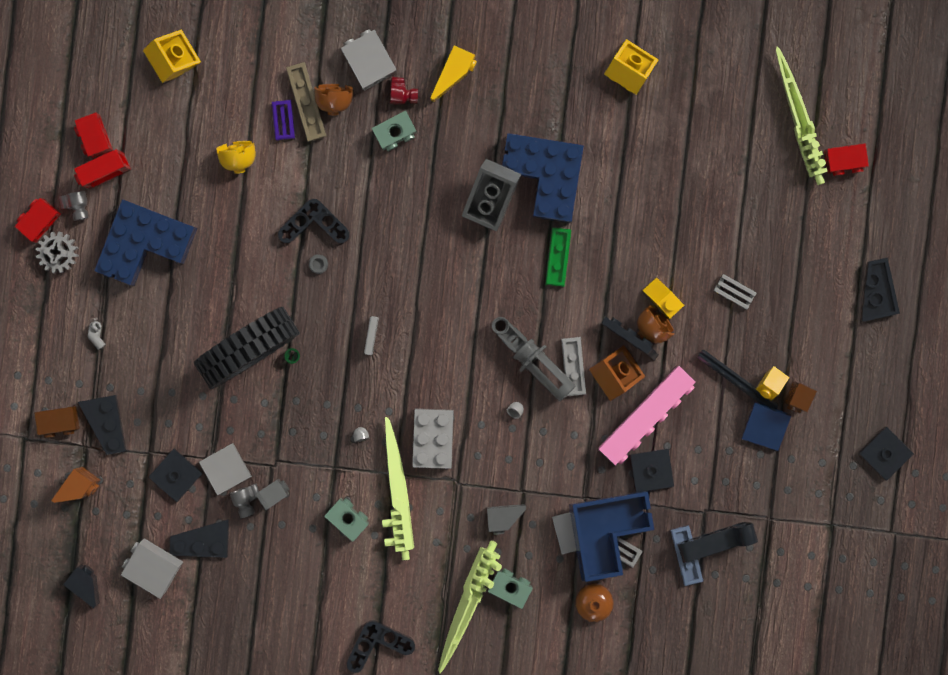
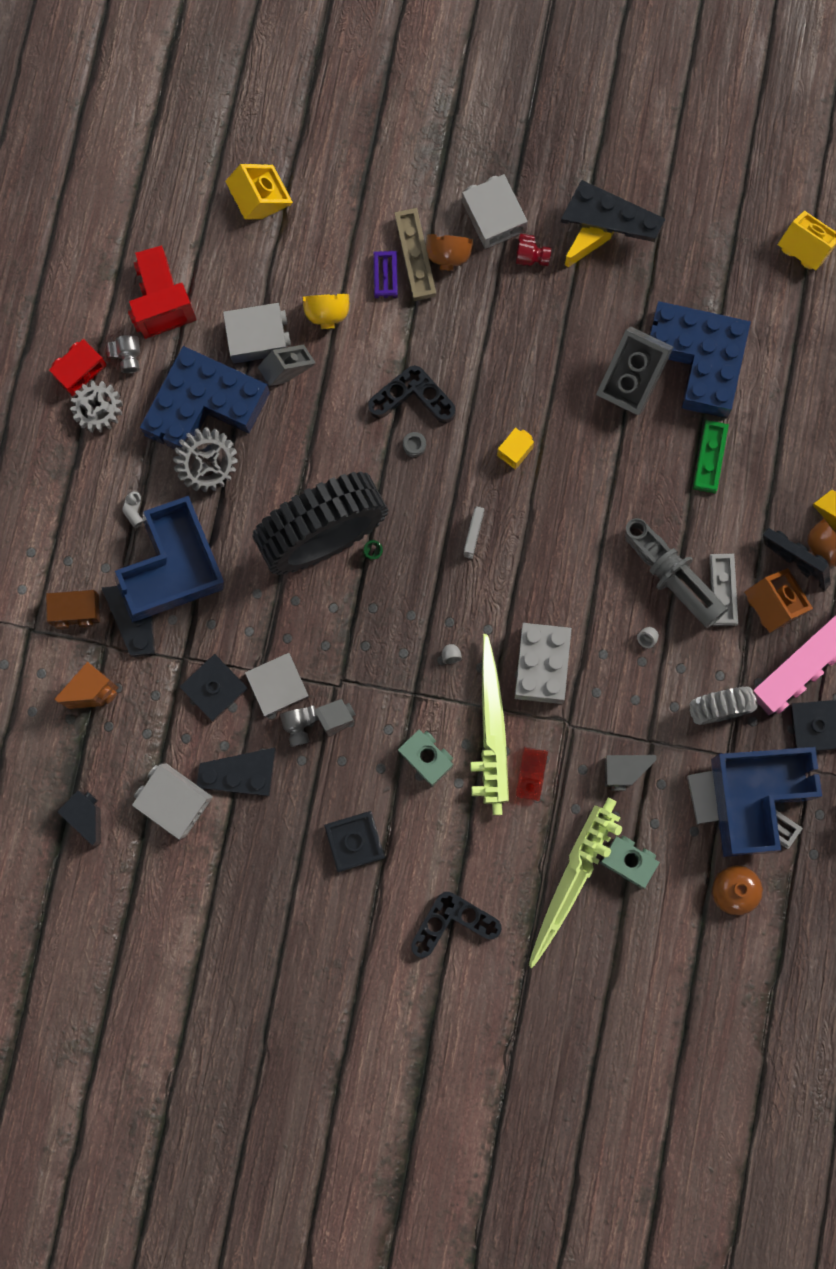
camera: 10 degrees right, 10 degrees down
(140, 384) = (181, 569): none -> dark blue piece
(150, 300) = (211, 452): none -> light grey gear
(181, 180) = (255, 332): none -> light grey brick
(208, 205) = (285, 364): none -> dark grey slope
(296, 588) = (354, 841): none -> black plate
(400, 121) = (526, 283): sand green brick -> none
(400, 262) = (516, 447): none -> yellow brick
(430, 524) = (531, 773): none -> clear red slope
(462, 59) = (606, 211): none -> black wing
(575, 463) = (723, 705): none -> light grey gear

